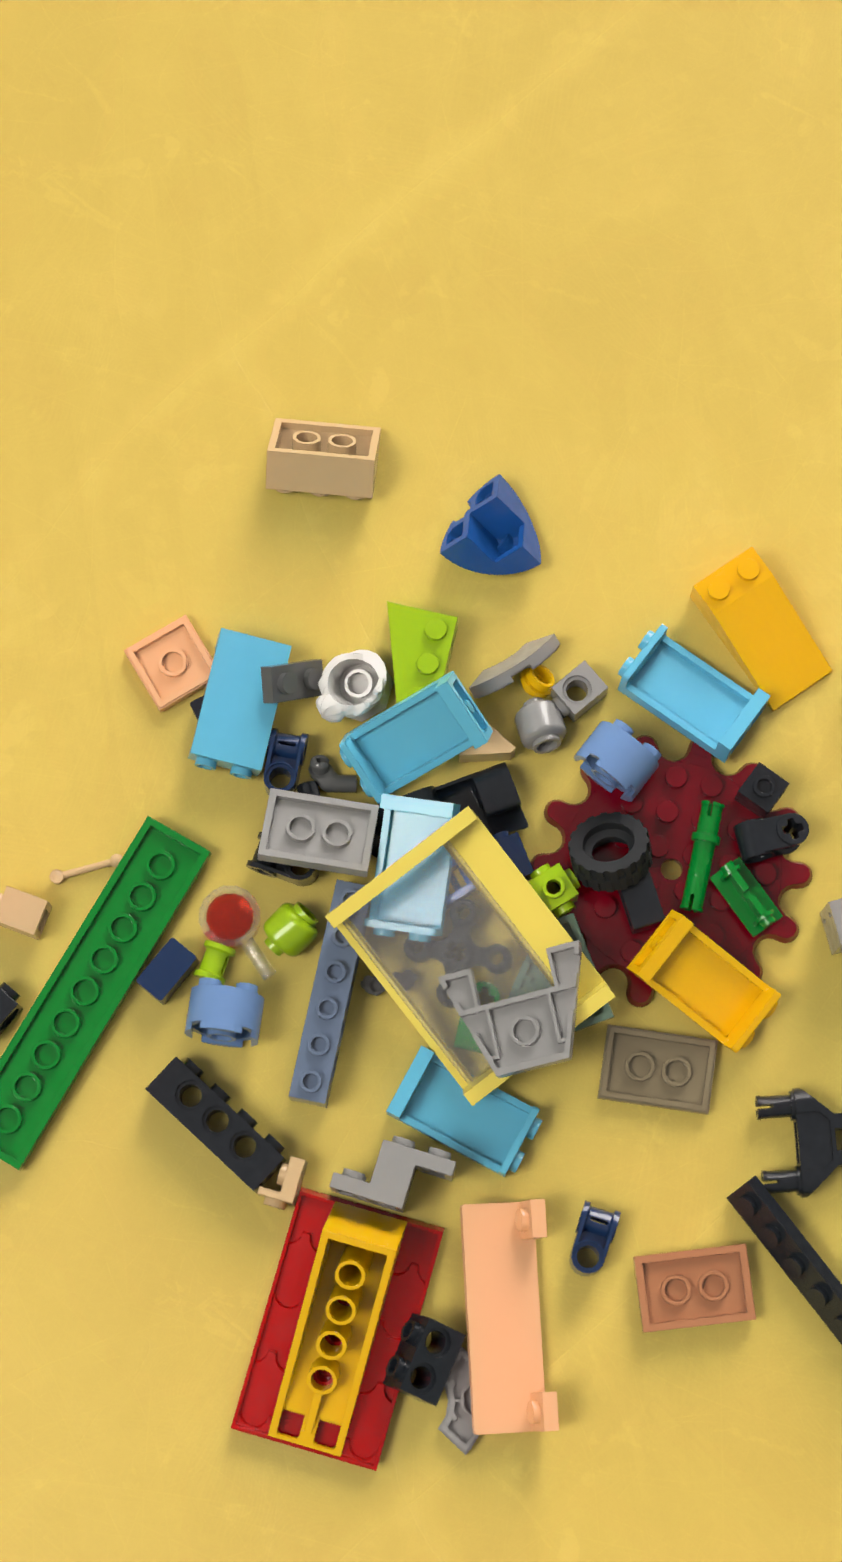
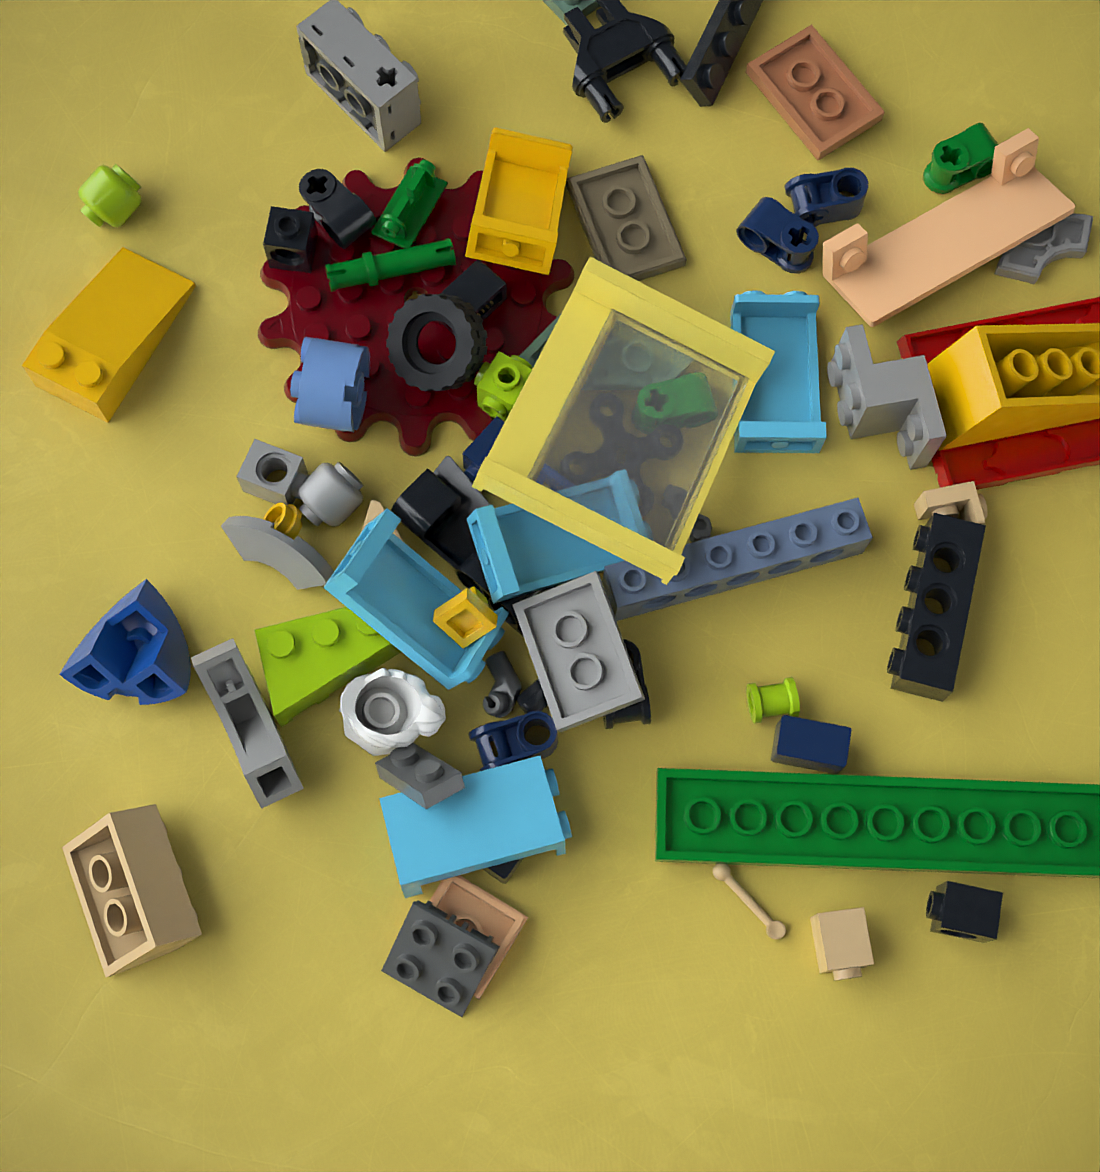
camera: 125 degrees left, 5 degrees down
(162, 635) = (439, 957): none -> dark grey hinge
(224, 1013) = (826, 652): medium blue brick -> none
(233, 919) = (713, 709): piece -> none
(290, 929) = (692, 638): lime head -> none
(373, 585) = (247, 723): none -> light grey arch
(387, 768) = (466, 617): none -> yellow tile
(431, 1362) = (1038, 286): black brick -> none
(526, 1028) = (675, 325): light grey wing -> none
(571, 1381) = (960, 159): none -> green piece
(586, 1179) = (776, 233): none -> dark blue piece
(690, 694) = (219, 359): medium azure panel -> none

